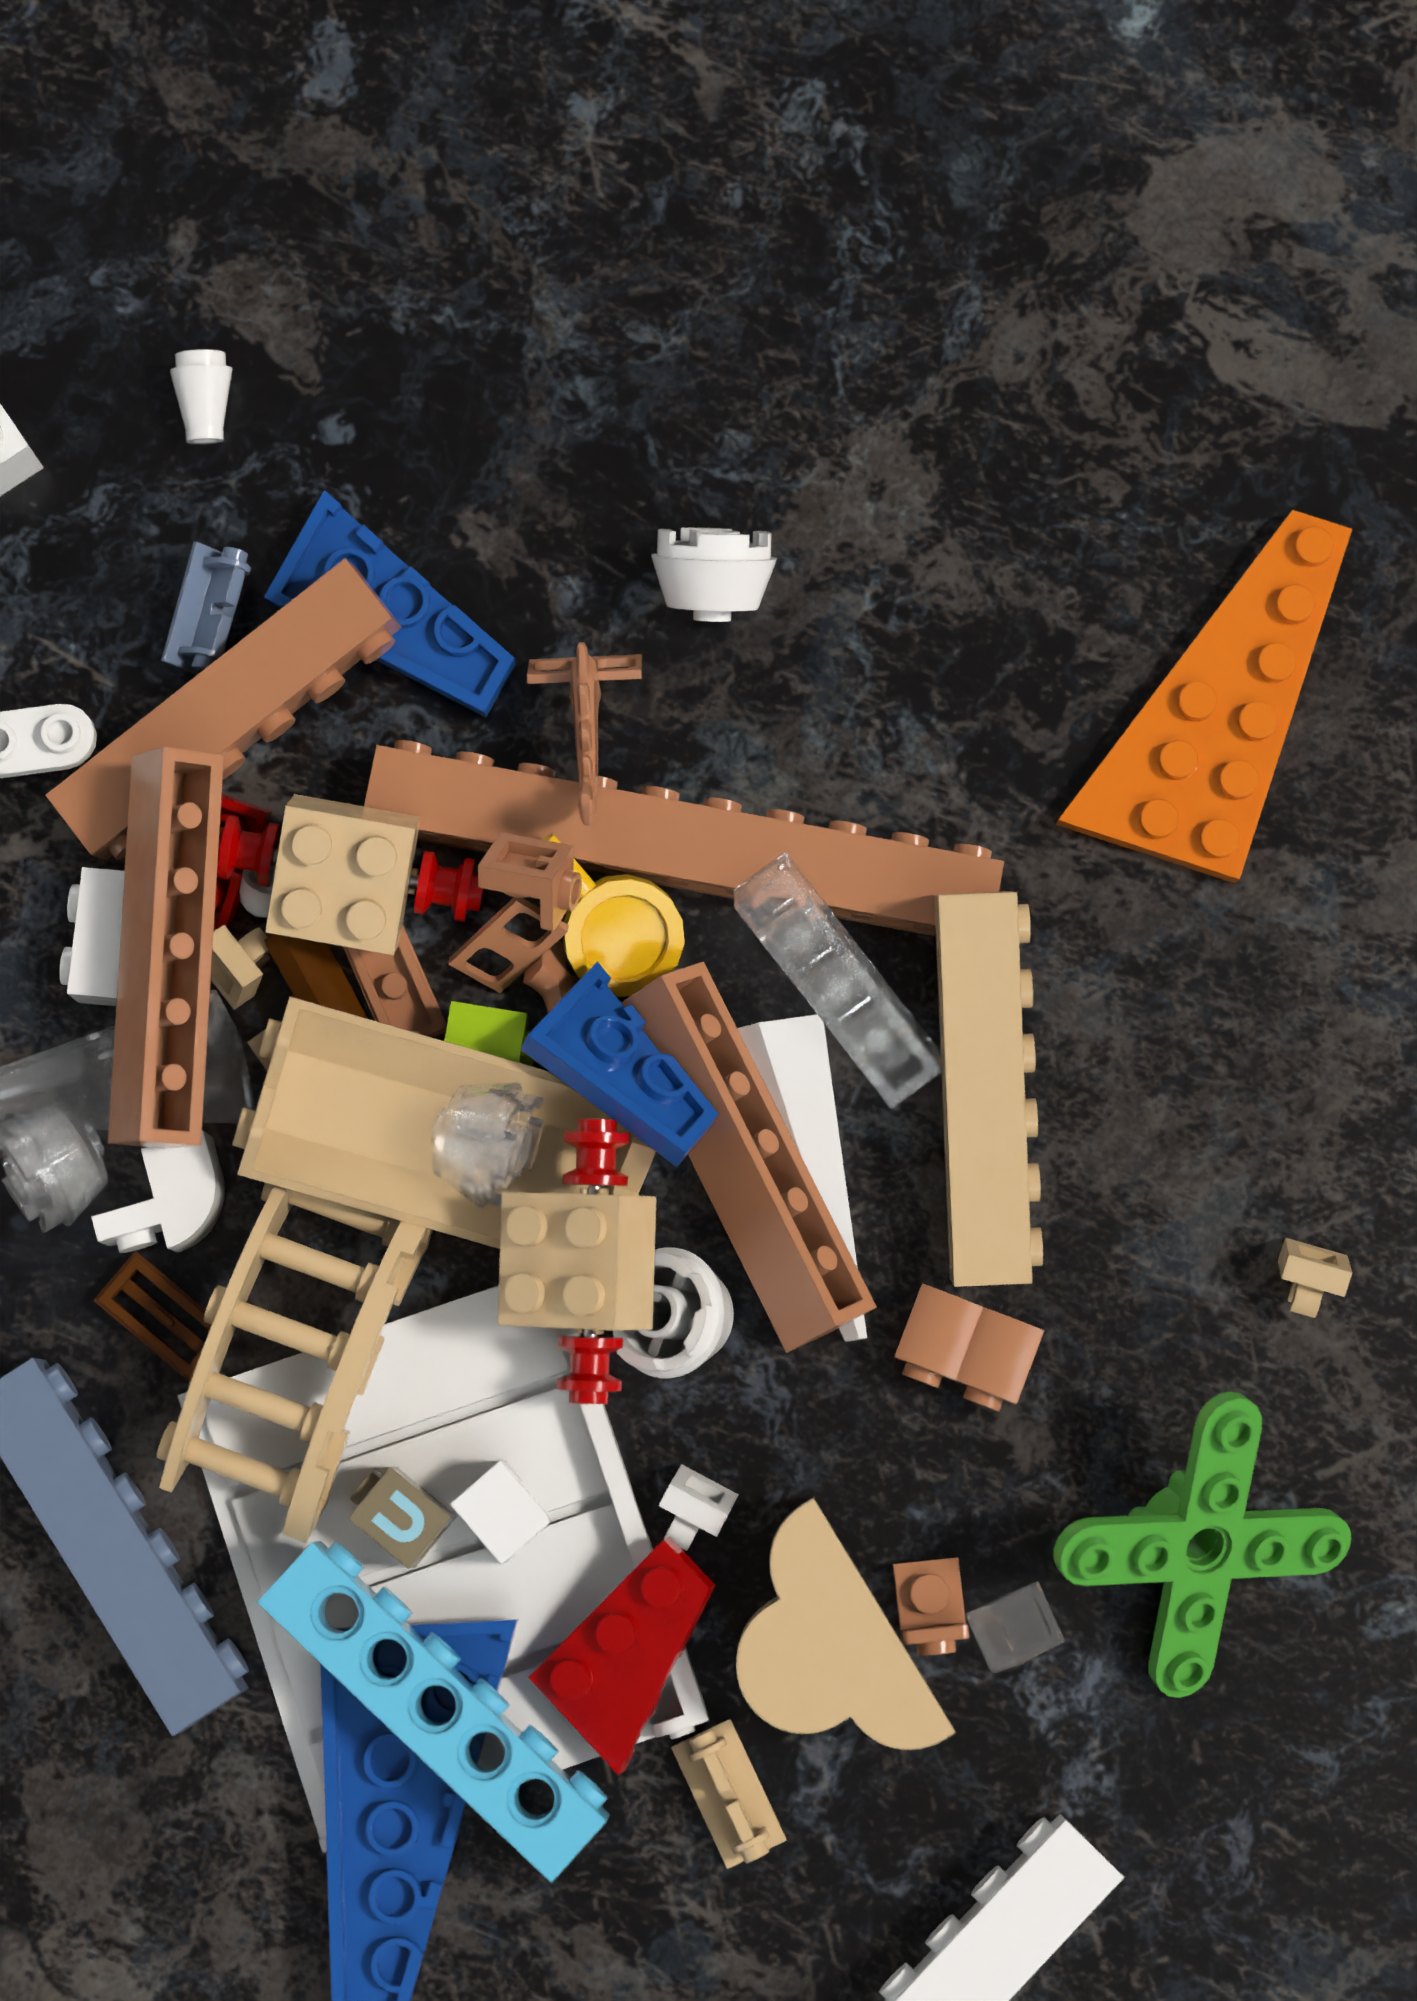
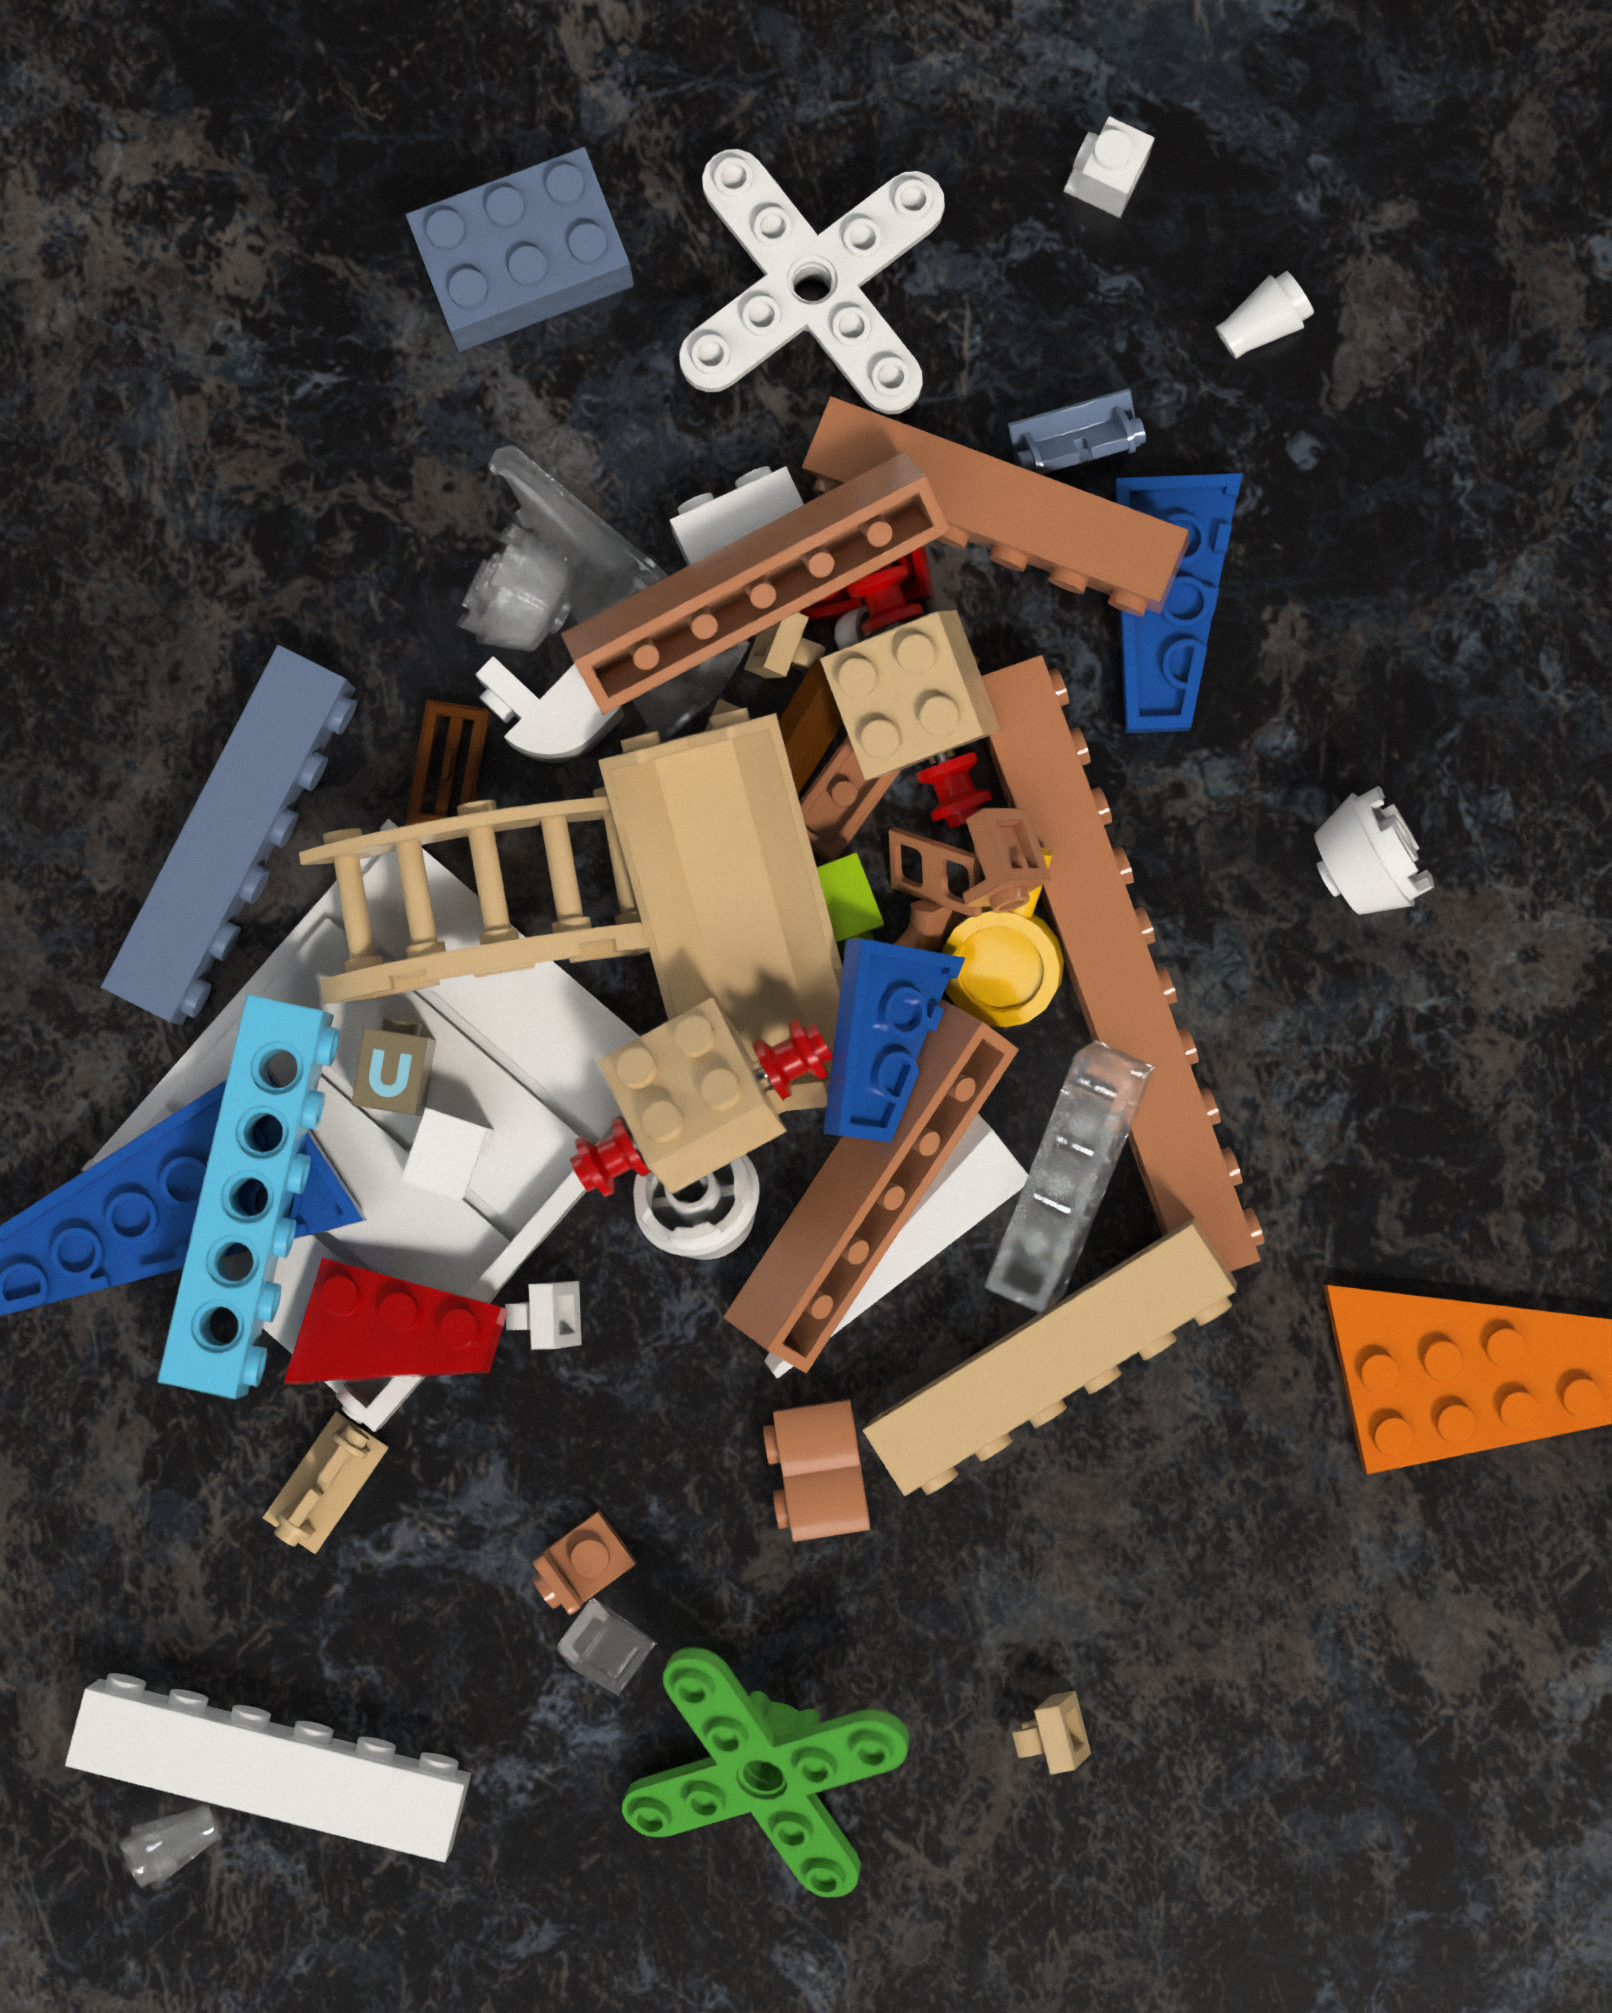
camera: 55 degrees right, 5 degrees up
(486, 1140) = (751, 955): clear cone -> none
(585, 694) = (1189, 811): nougat piece -> none
(829, 1649) = (487, 1500): tan brick -> none

